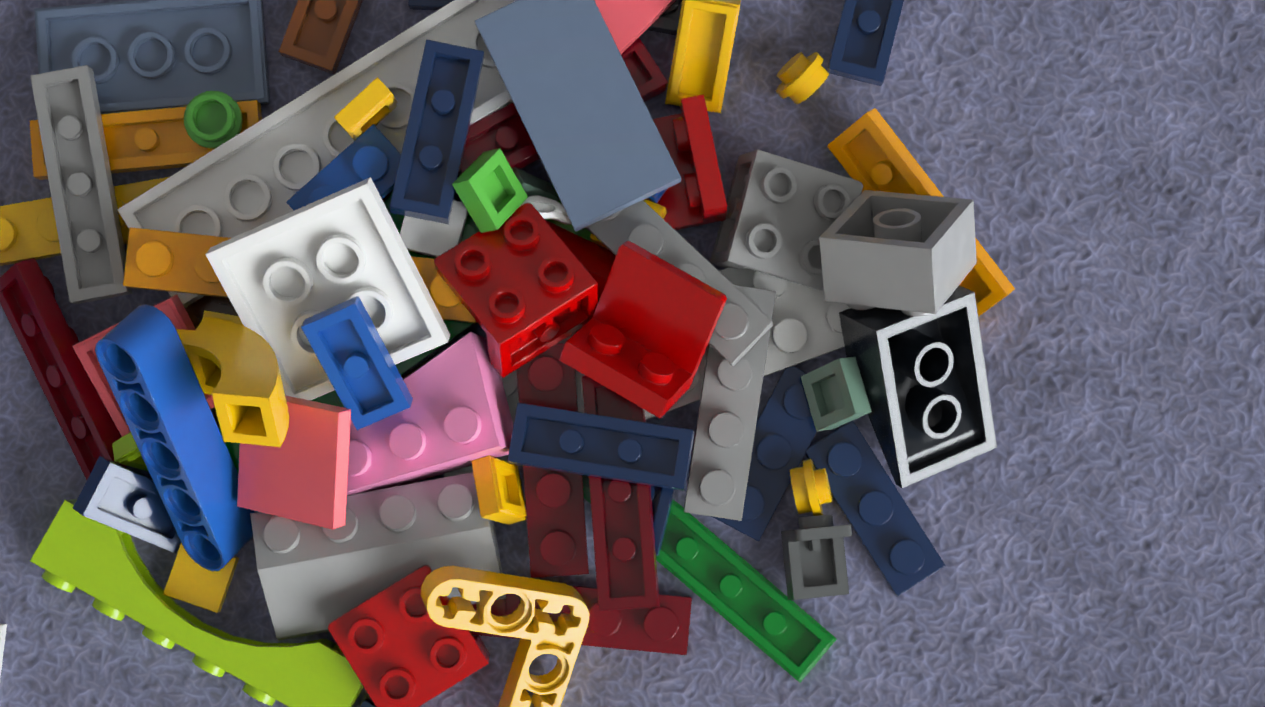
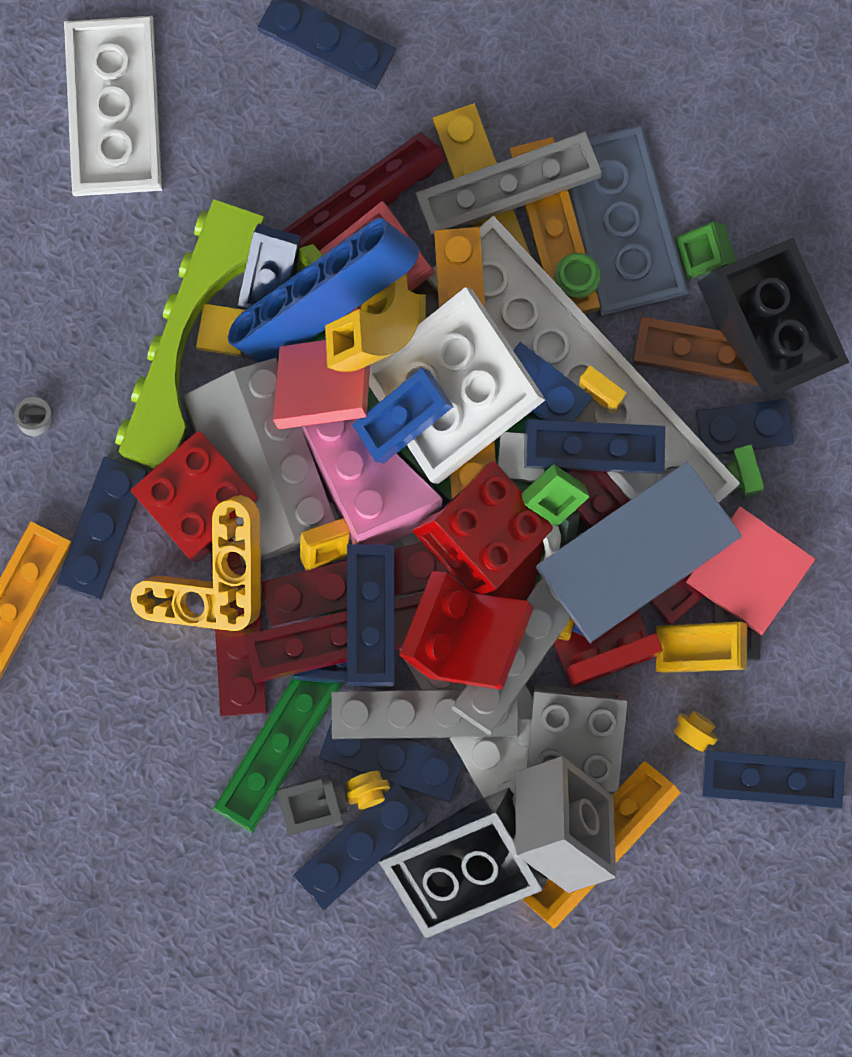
camera: 85 degrees right, 5 degrees down
(836, 394) = (444, 796): sand green plate -> none

